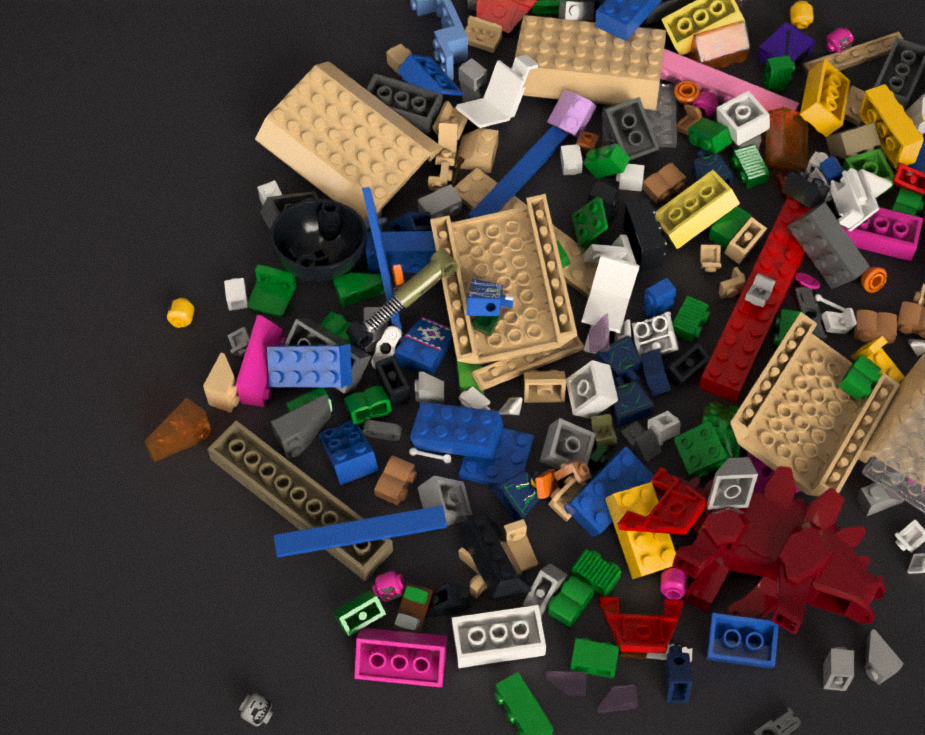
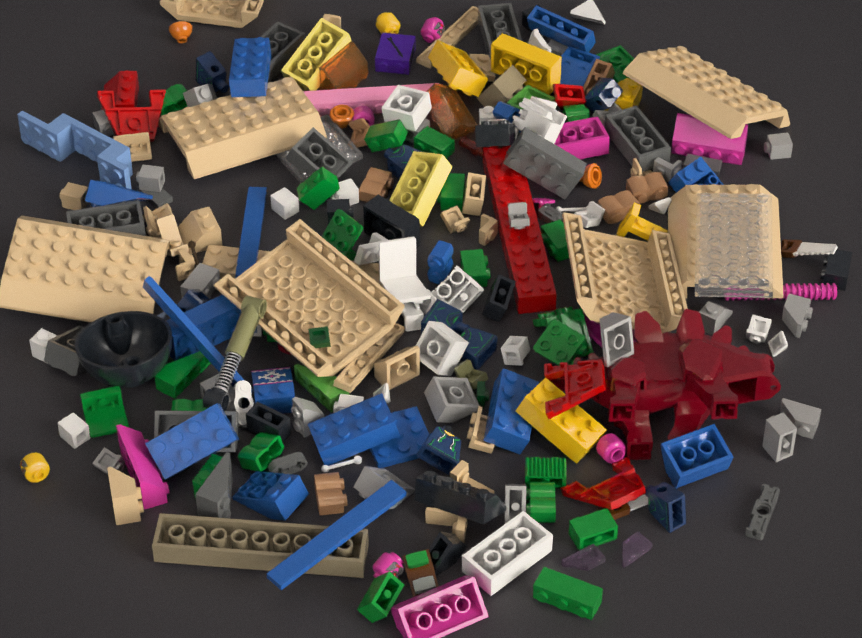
camera: 35 degrees left, 15 degrees down
(179, 431) = (113, 547): clear orange slope -> none
(396, 276) = (217, 338): orange tile -> none
(487, 299) = (309, 317): blue torso -> none
(502, 94) = (190, 176): white piece -> none
(546, 483) = (458, 429): orange tile -> none
(572, 113) = (259, 168): lavender slope -> none
(578, 468) = (468, 408): medium nougat bracket -> none
(587, 141) = (291, 182): dark orange bracket -> none
(600, 336) = (417, 307): clear purple tile -> none
(641, 441) = (511, 363): dark grey slope -> none
(654, 371) = (478, 314): dark blue slope -> none
(778, 73) = (405, 69): green brick -> none
(860, 377) = (638, 240): green brick -> none

